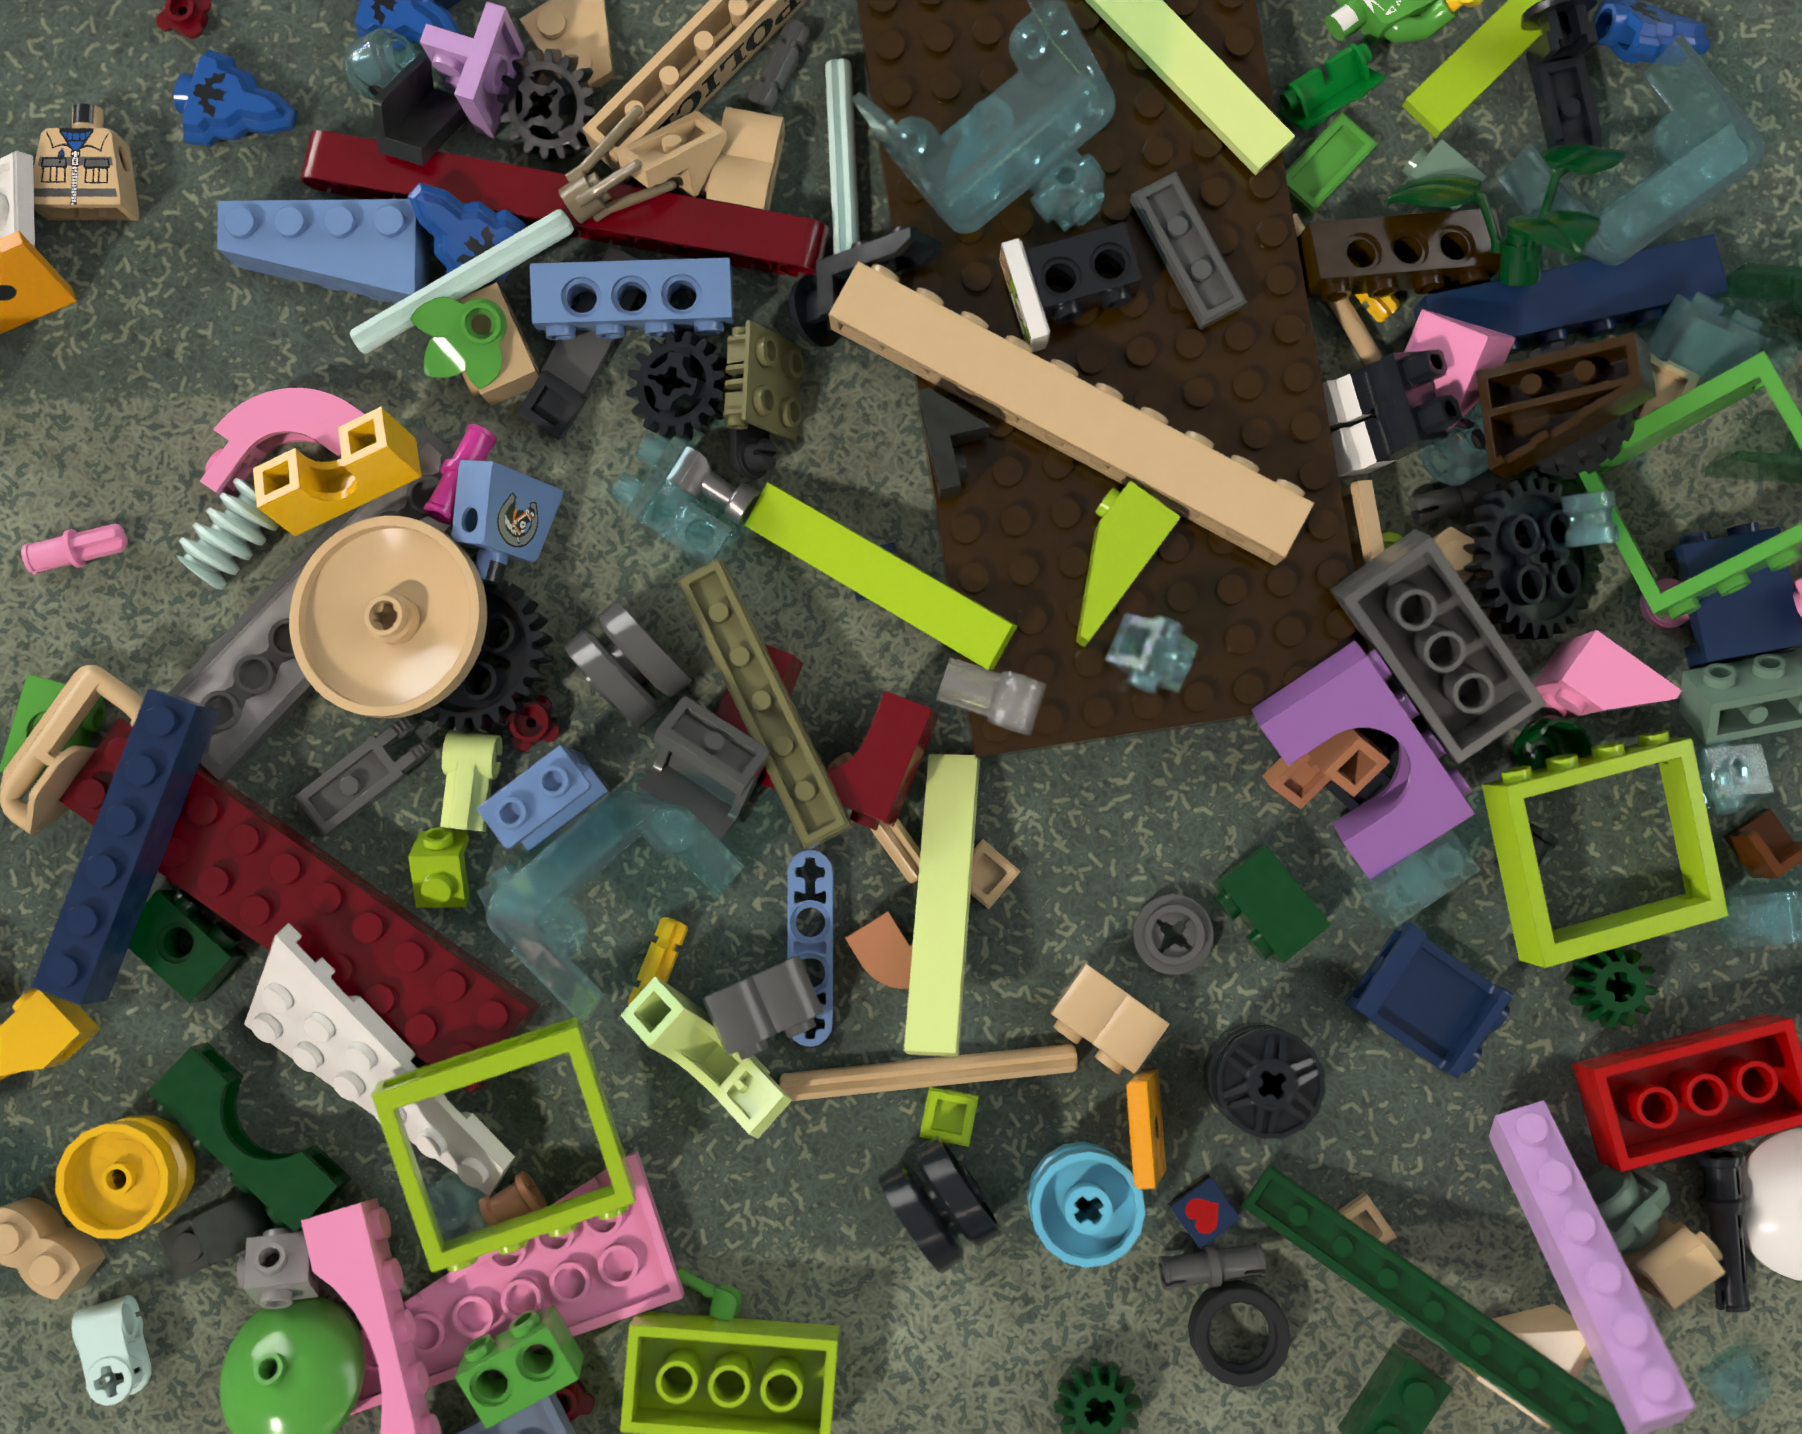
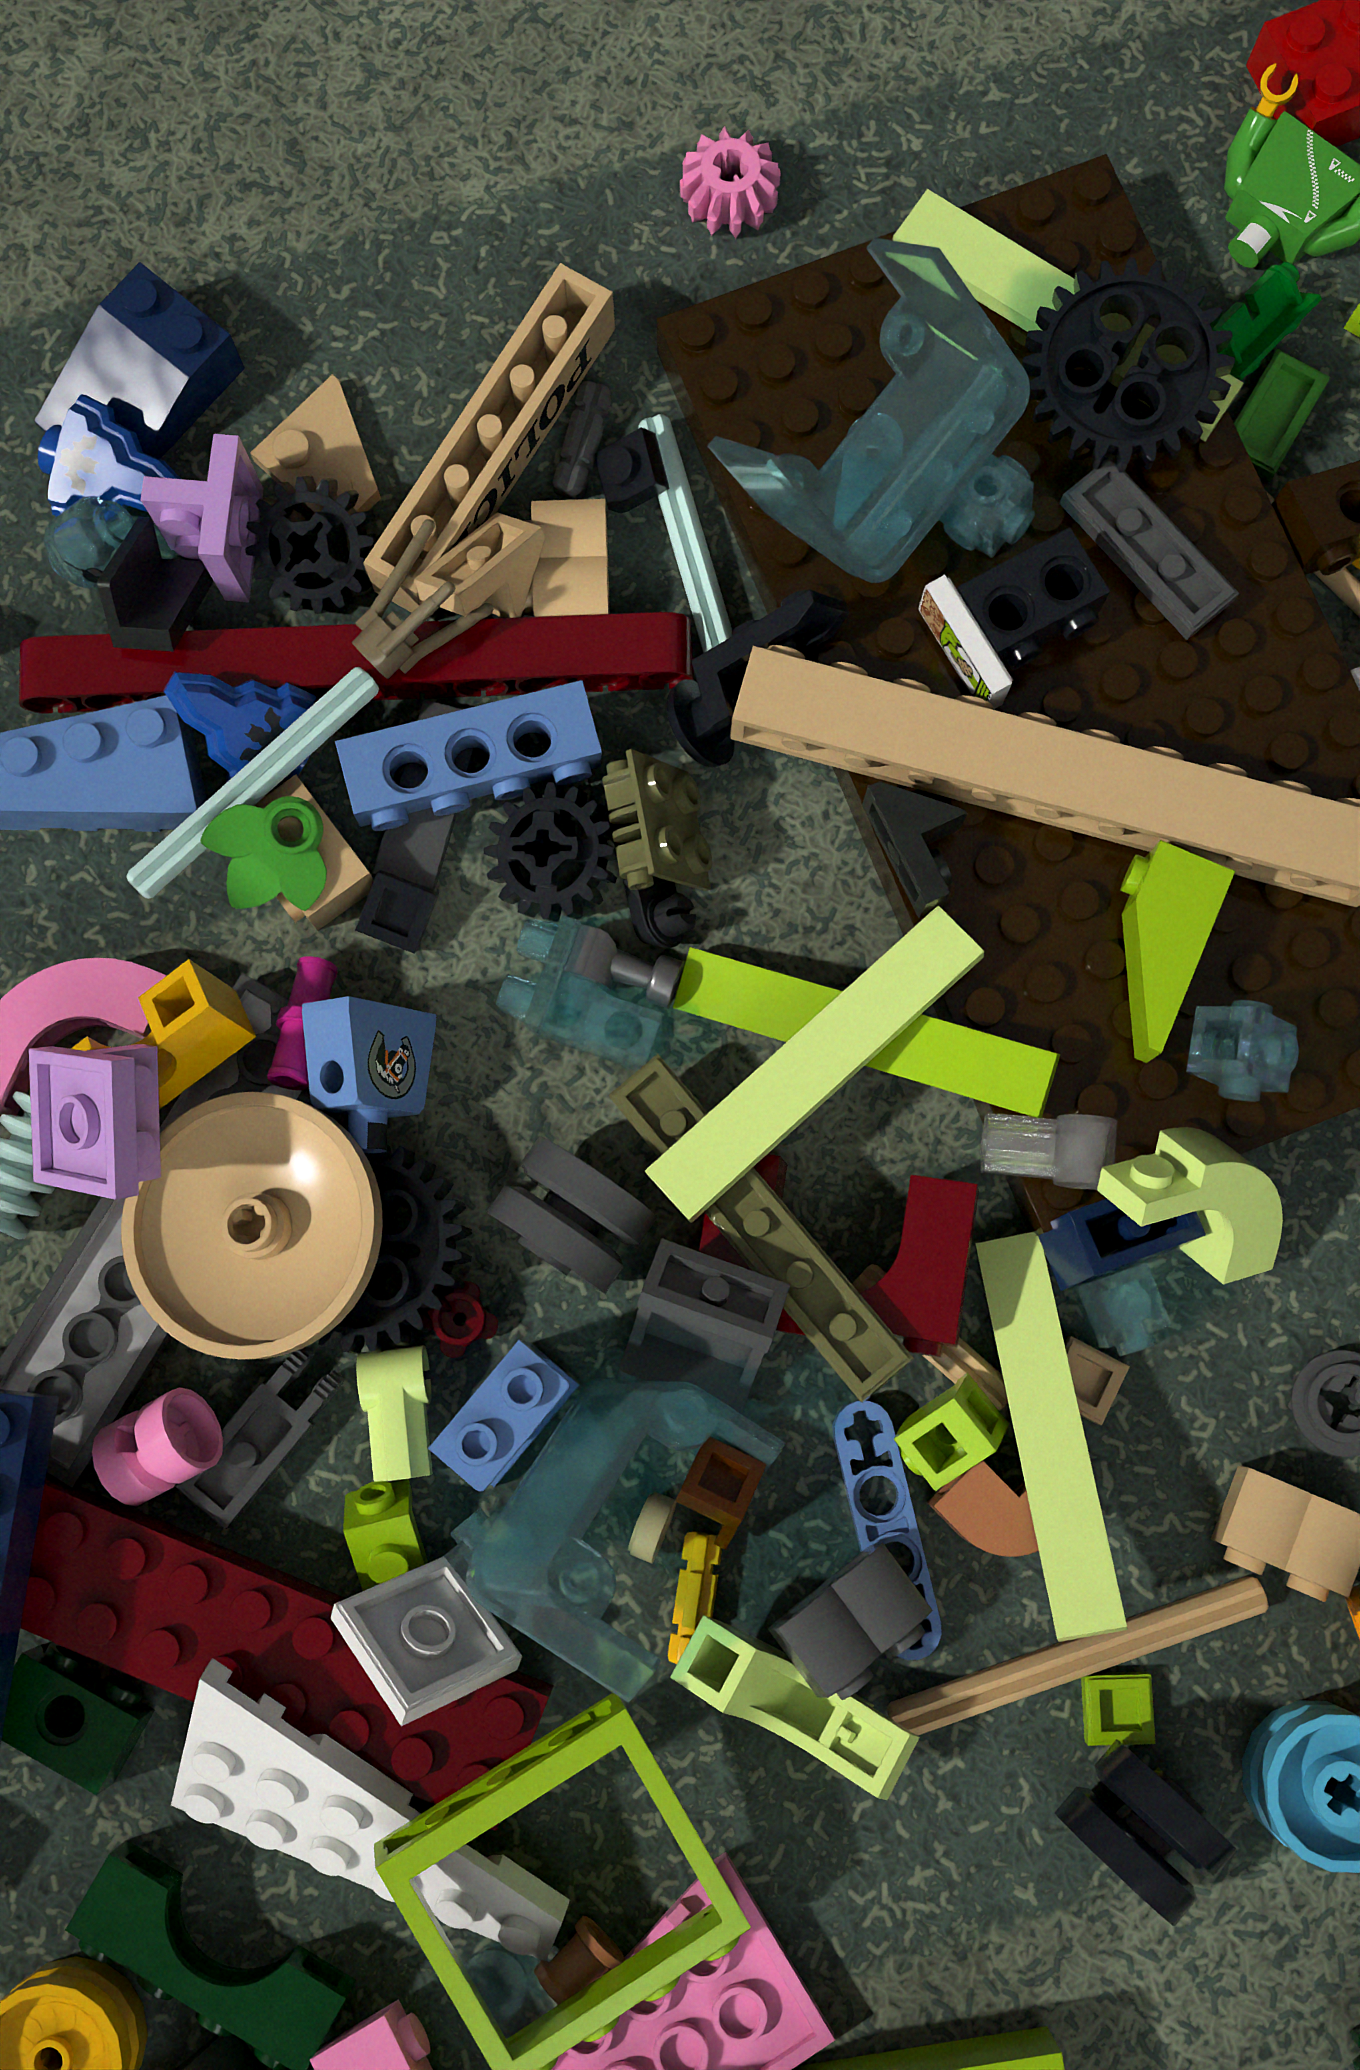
camera: 15 degrees left, 5 degrees down
(285, 764) = (157, 1447): none -> bright pink wheel
(286, 511) = (95, 1118): none -> lavender bracket
(447, 947) = (424, 1639): none -> white tile
(637, 906) = (651, 1527): none -> tan tile
(692, 888) = (721, 1486): none -> reddish brown panel
(725, 1299) = (887, 2024): bright green hand -> none
(811, 99) = (631, 471): none -> black plate
(832, 591) = (814, 1063): none -> yellowish green tile
(873, 888) = (974, 1433): none -> lime brick
(1024, 827) = (1122, 1309): none -> clear light blue brick
(1035, 769) = (1105, 1240): none -> dark blue brick
(1121, 771) = (1205, 1176): none -> yellowish green arch
(1235, 131) = (1175, 392): none -> black gear

